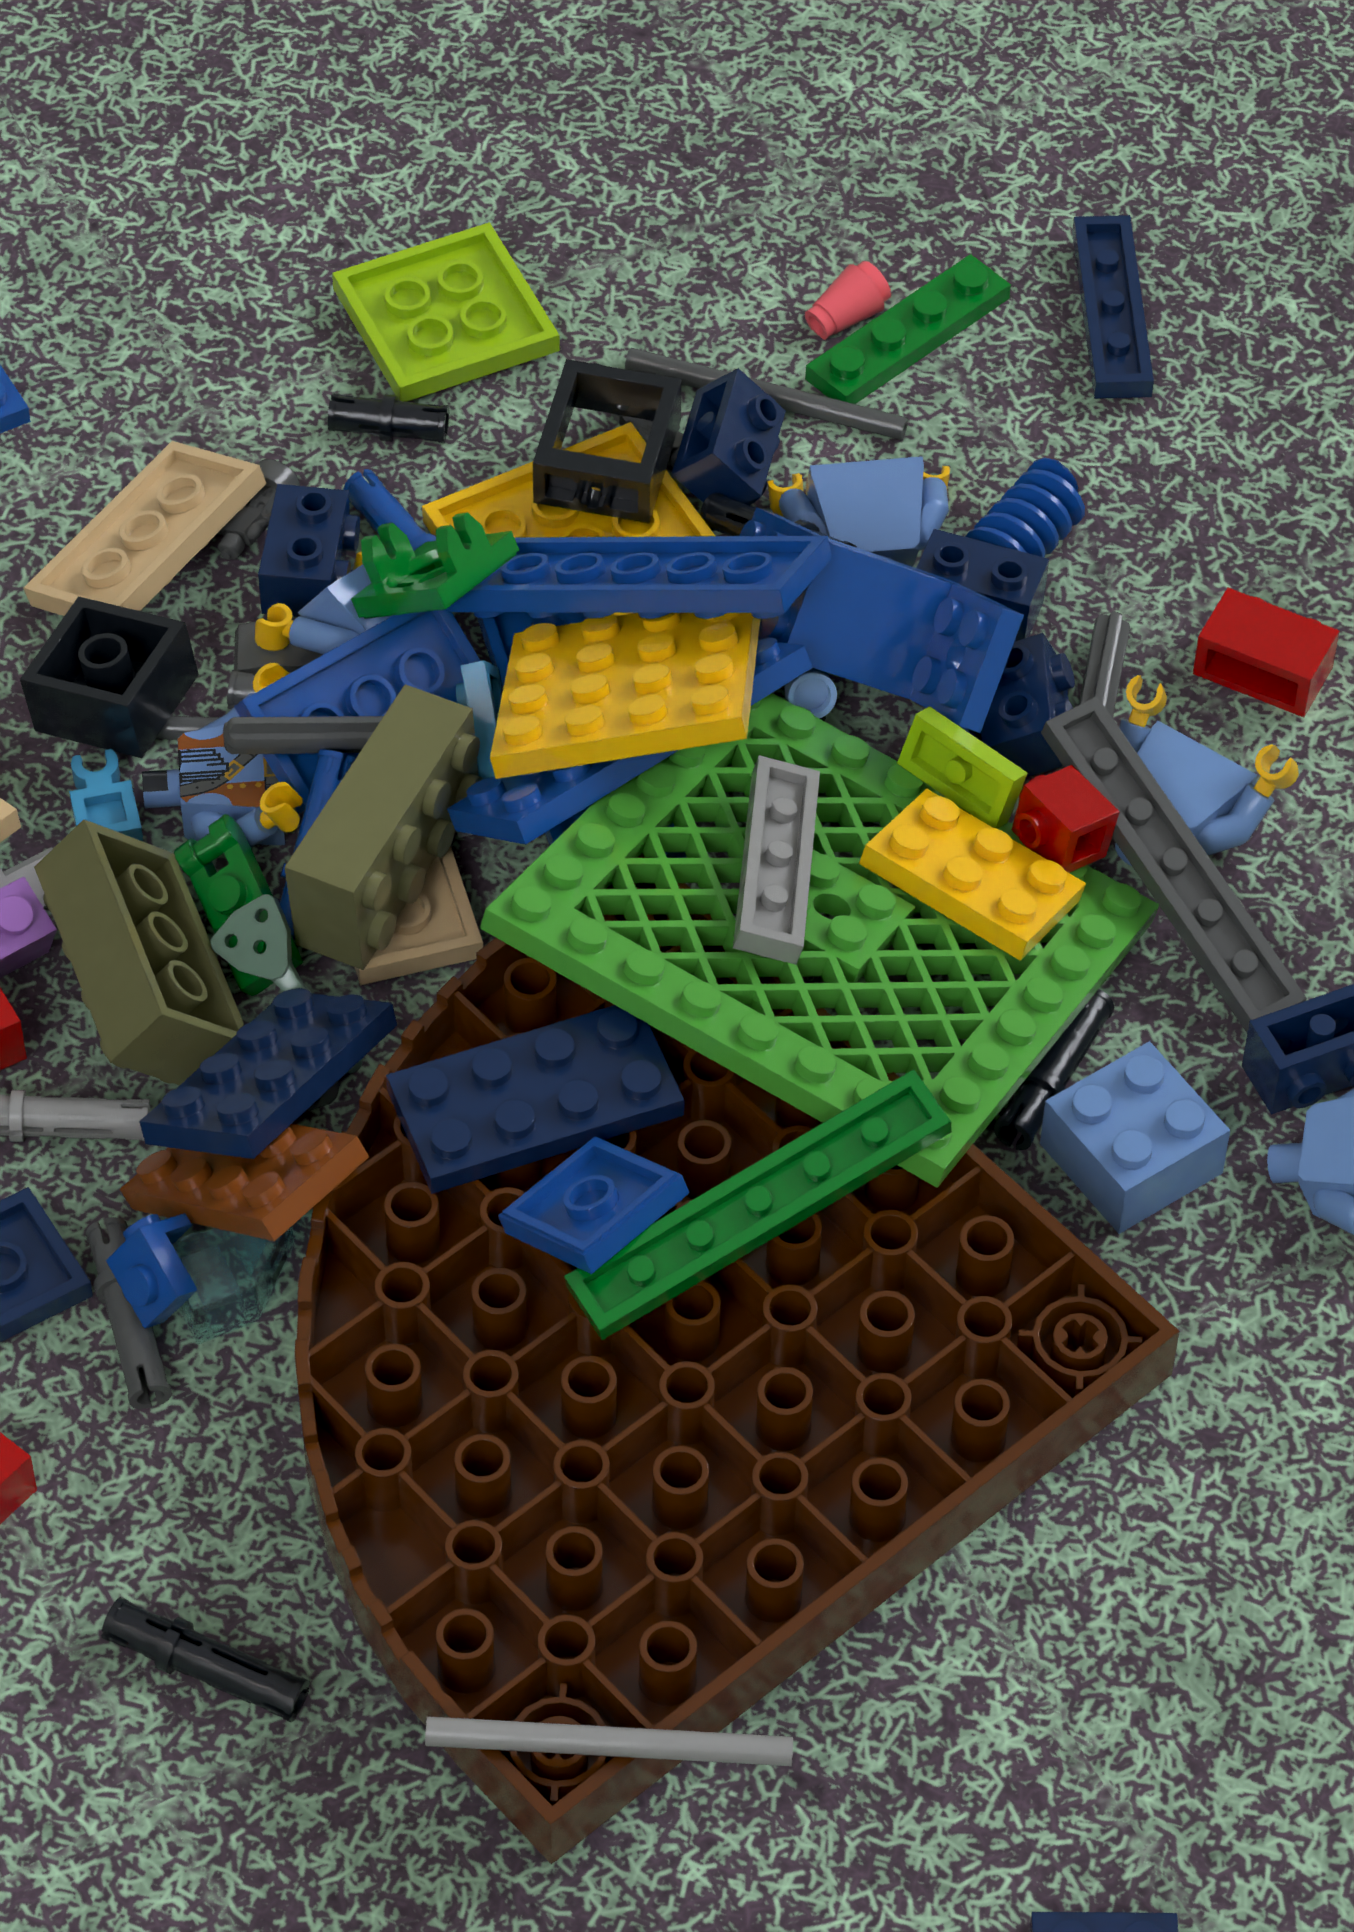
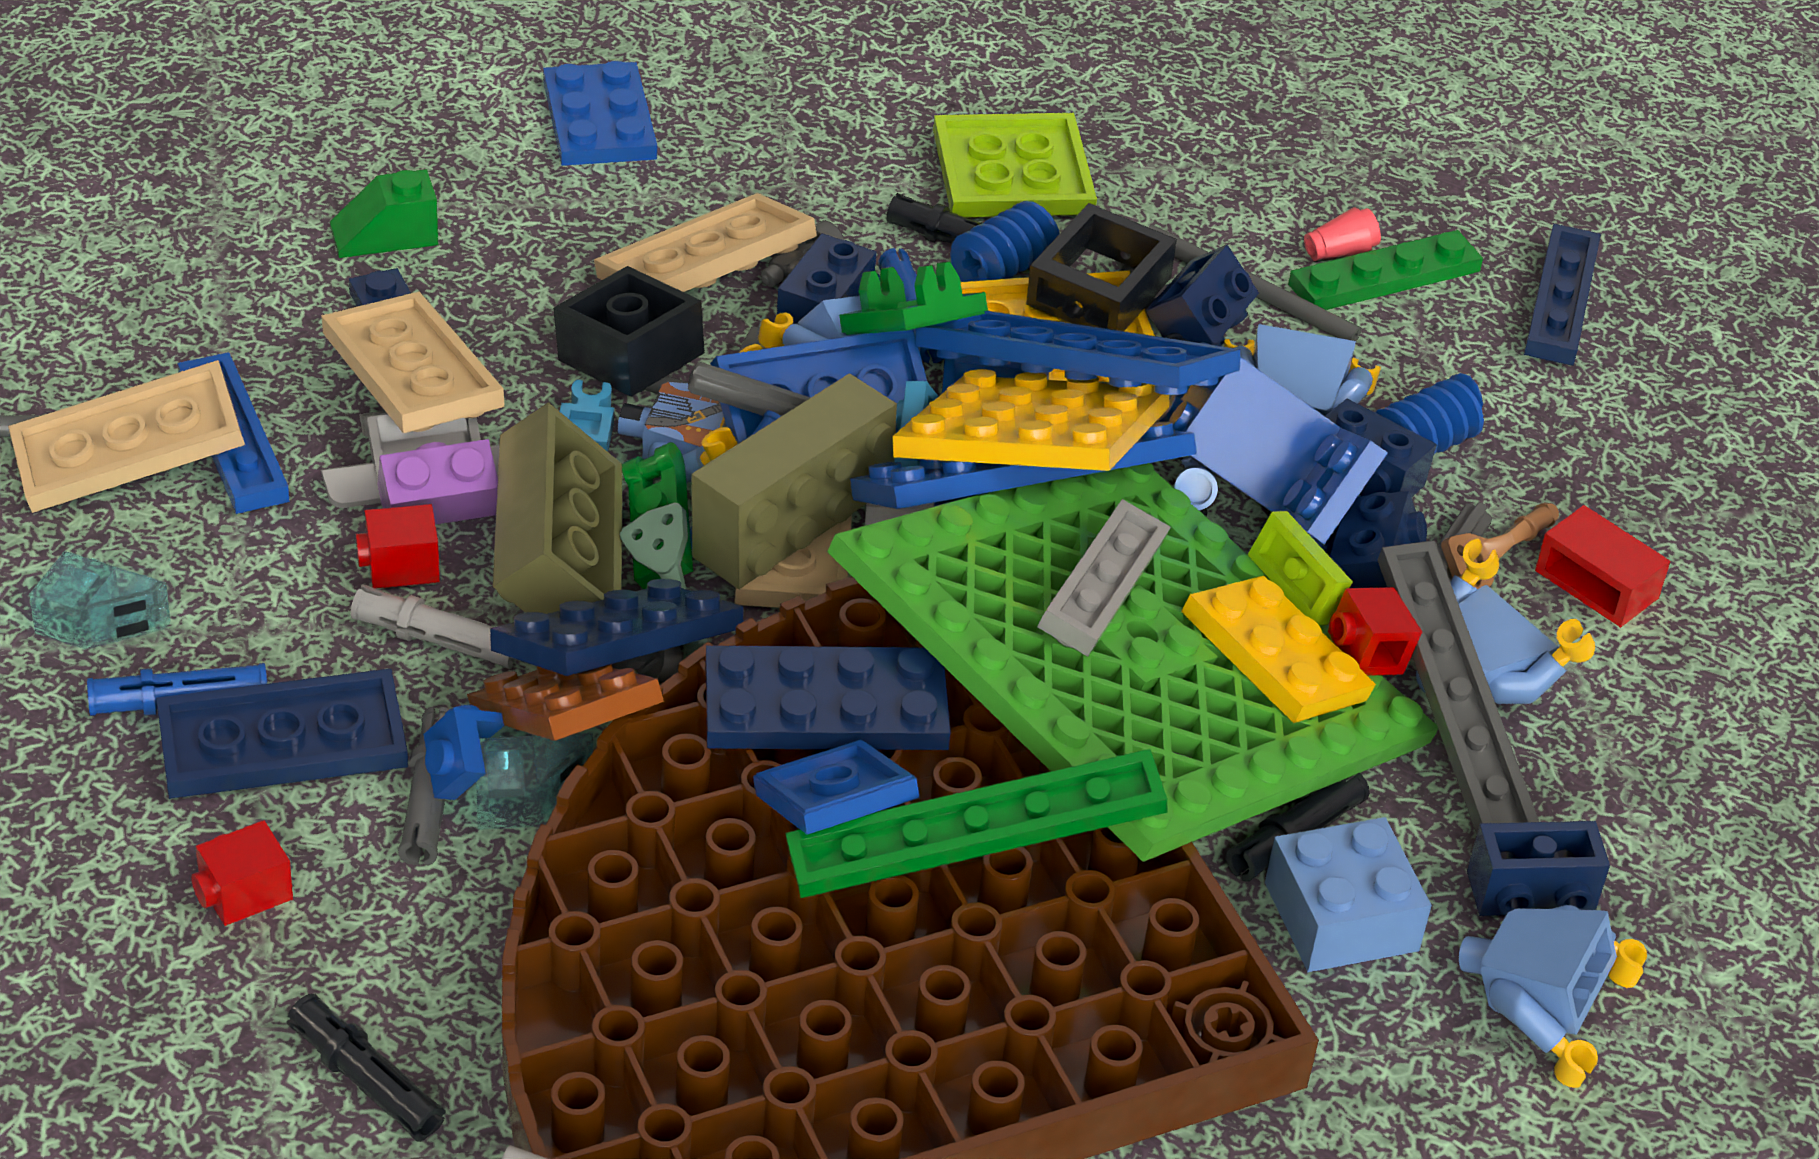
camera: 15 degrees right, 10 degrees down
(480, 430) = (1003, 243): none -> blue piece
(1114, 676) = (1524, 529): none -> medium nougat piece

